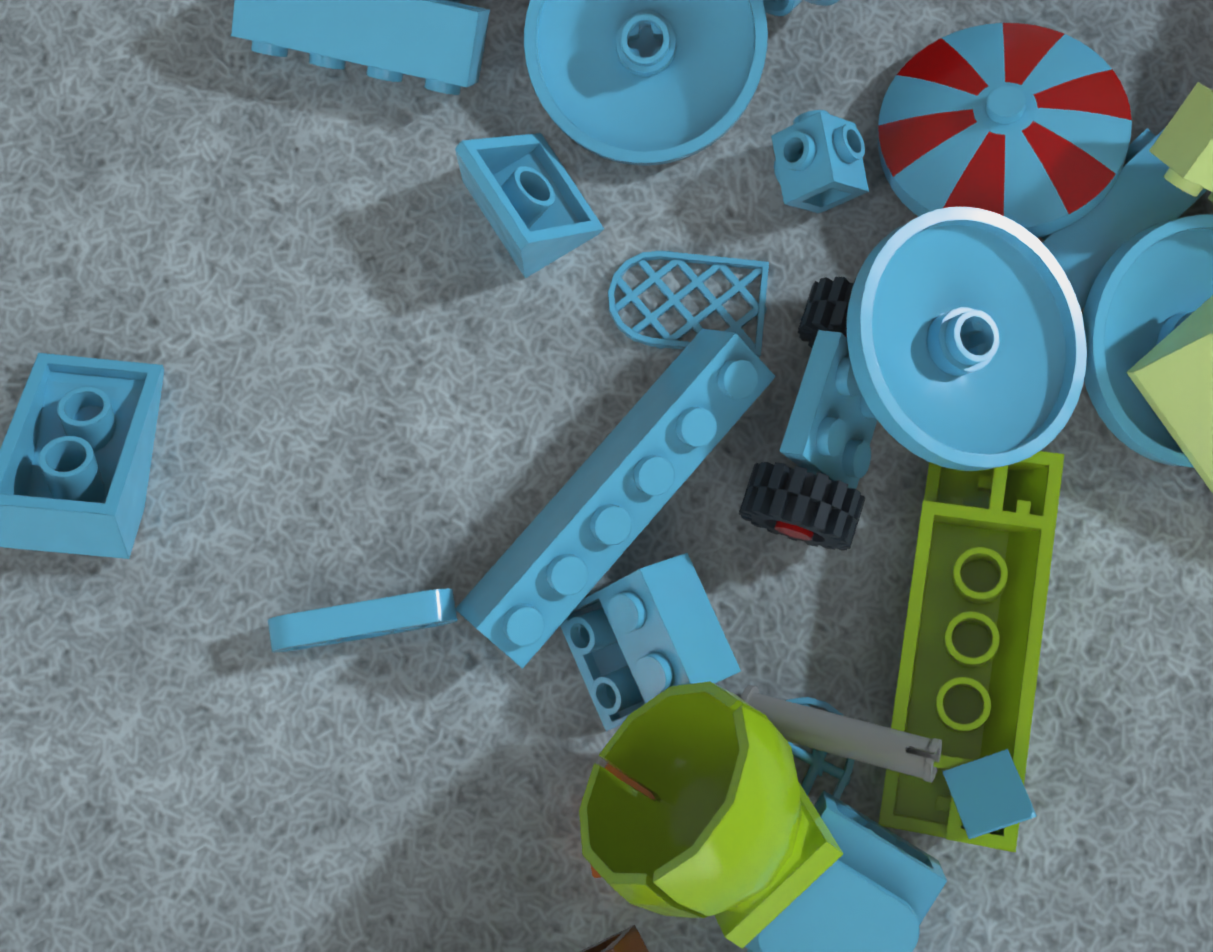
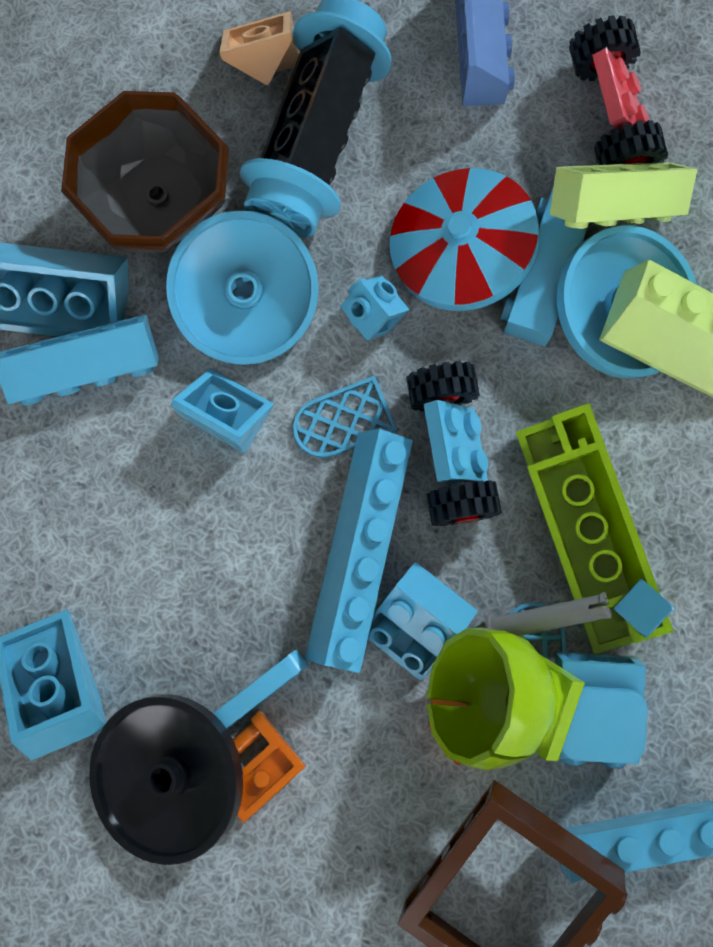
camera: 20 degrees left, 0 degrees up
(170, 672) = (166, 779): none -> black dish
(307, 741) = (269, 769): none -> orange plate
(966, 339) = (505, 368): medium azure dish -> none

